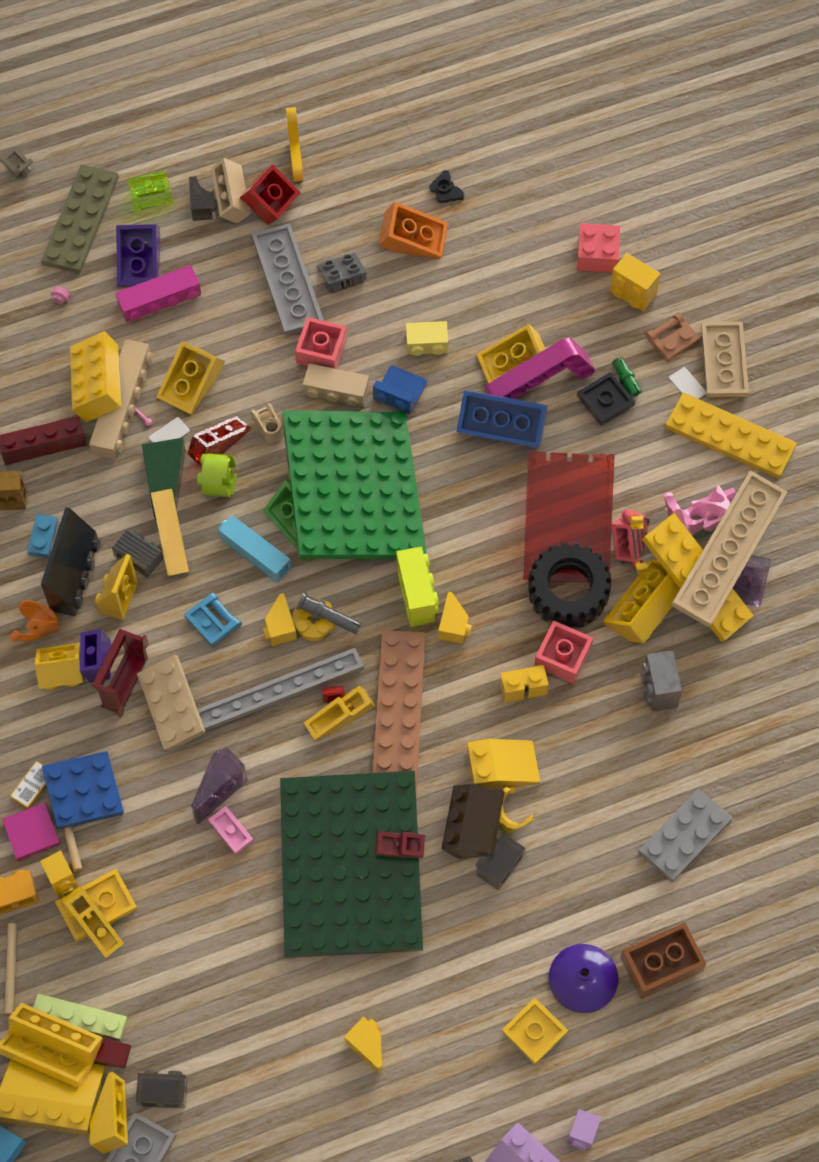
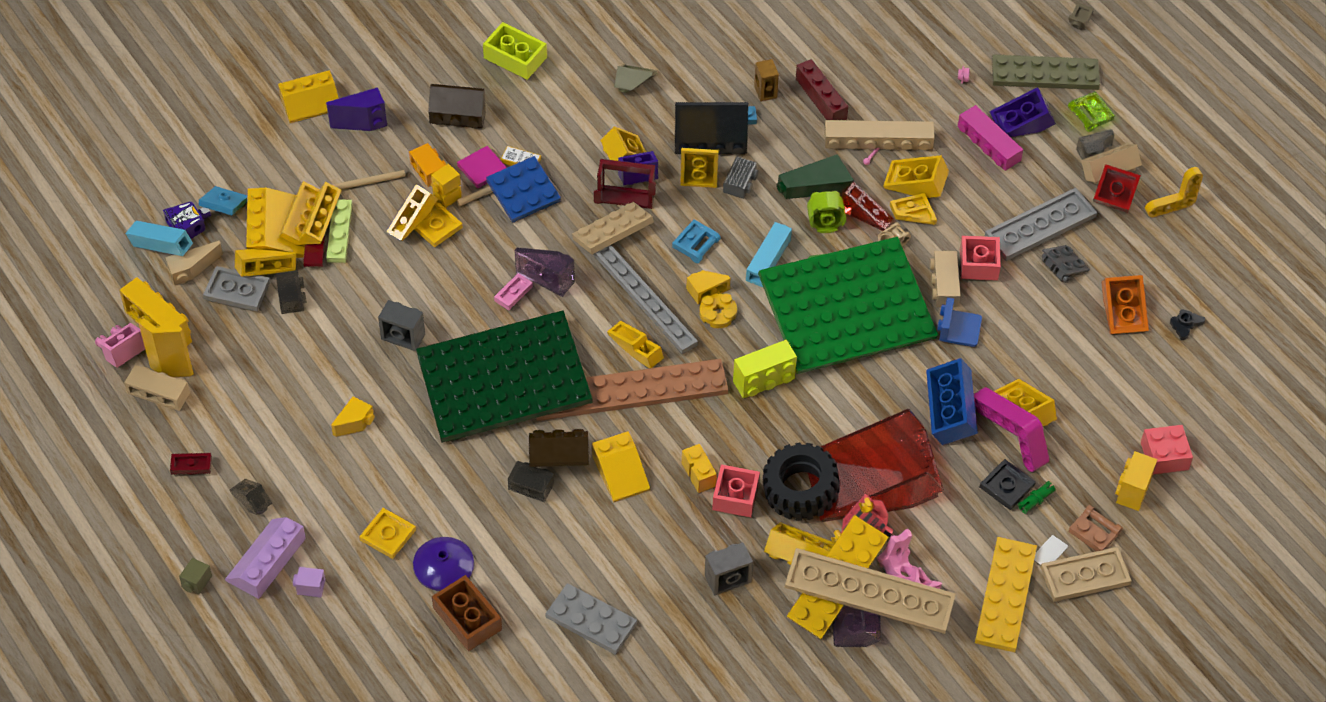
camera: 75 degrees right, 10 degrees down
(36, 625) = (665, 132): orange helmet -> none
(95, 377) = (887, 107): yellow brick -> none
(170, 532) = (763, 191): yellow tile -> none
(172, 430) = (862, 178): white sticker -> none
(233, 392) = (913, 209): none -> yellow wing
(255, 962) = (401, 325): none -> dark grey brick
(319, 609) = (722, 305): dark grey pin -> none
(331, 693) = (653, 334): red slope -> none
(400, 845) = (522, 398): dark red slope -> none
(427, 338) = (1018, 335): light yellow brick -> none
(454, 622) = (745, 406): yellow slope -> none
(506, 823) = (574, 474): yellow helmet -> none

